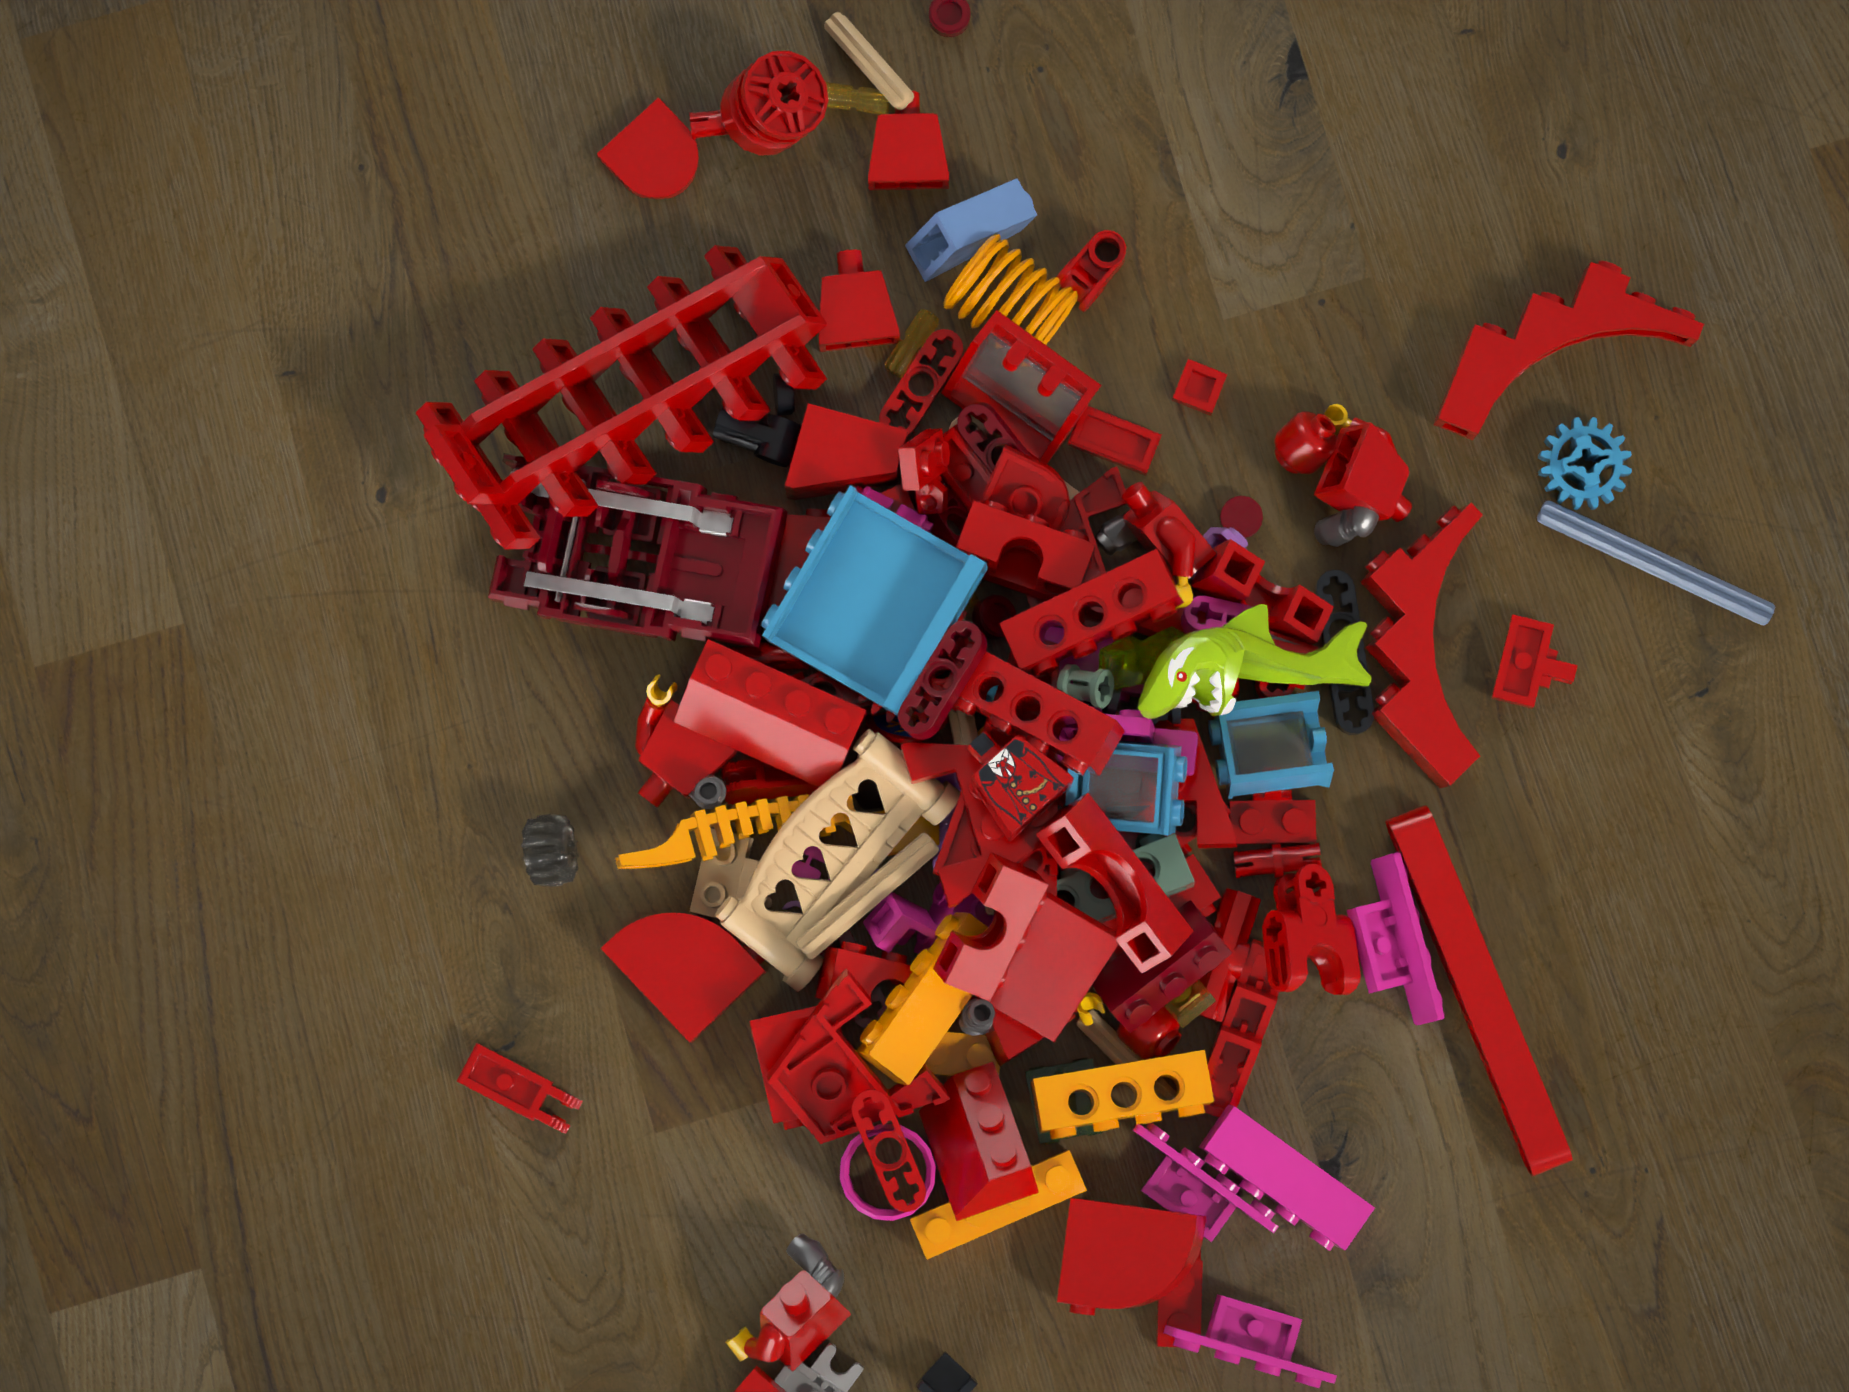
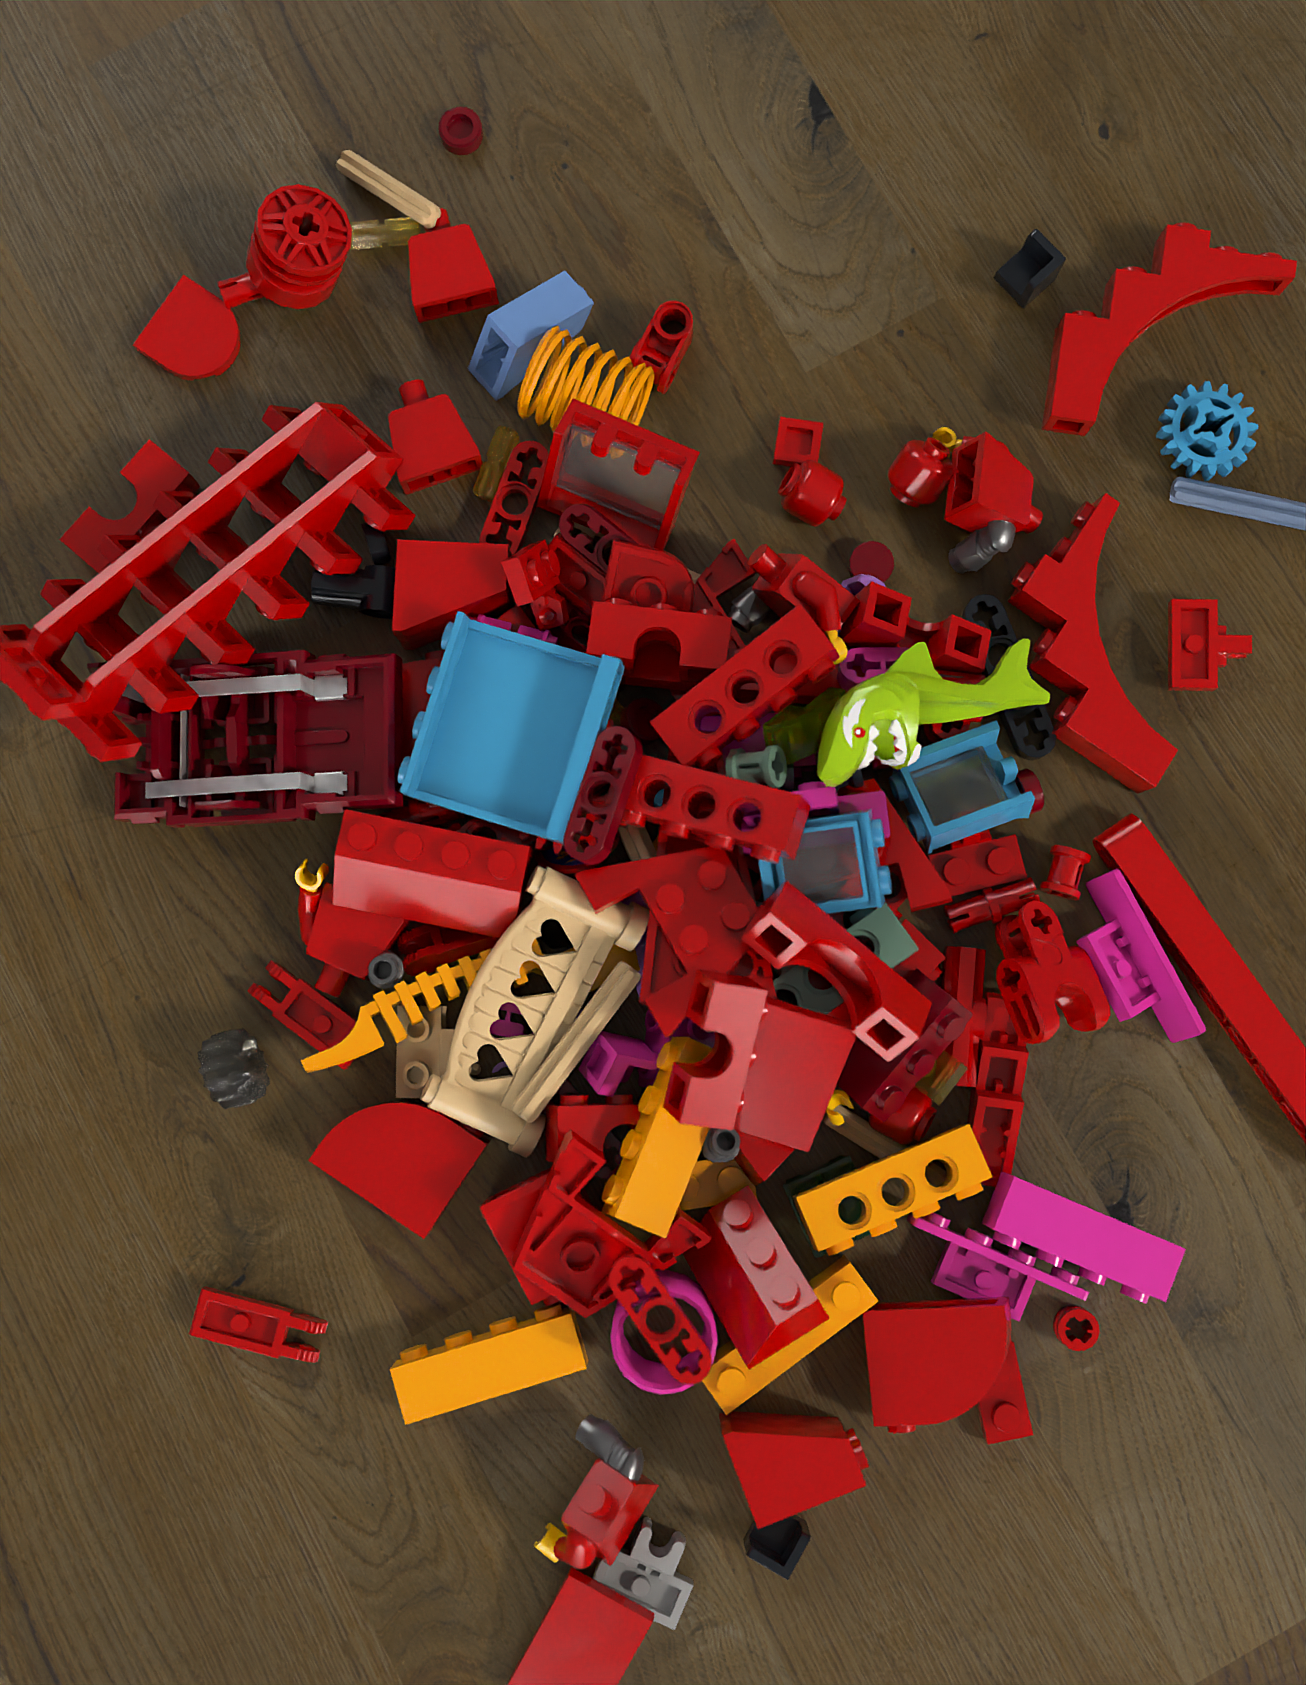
camera: 10 degrees left, 0 degrees up
(592, 288) = (149, 474): none -> red arch
(625, 814) = (306, 1011): none -> red hinge
(722, 1170) = (488, 1364): none -> light orange brick
(975, 1315) = (791, 1461): none -> red slope
(1016, 781) = (706, 886): red torso -> none
(1114, 440) = (724, 515): red tile -> none
(1200, 439) = (812, 493): none -> red head
(1251, 1333) = (1086, 1412): dark pink bracket -> none
(1259, 1275) = (1072, 1342): none -> red bush
(1336, 755) = (1028, 781): none -> dark red tile
(1352, 845) = (1065, 872): none -> red bush
(1455, 272) = (1030, 269): none -> black panel

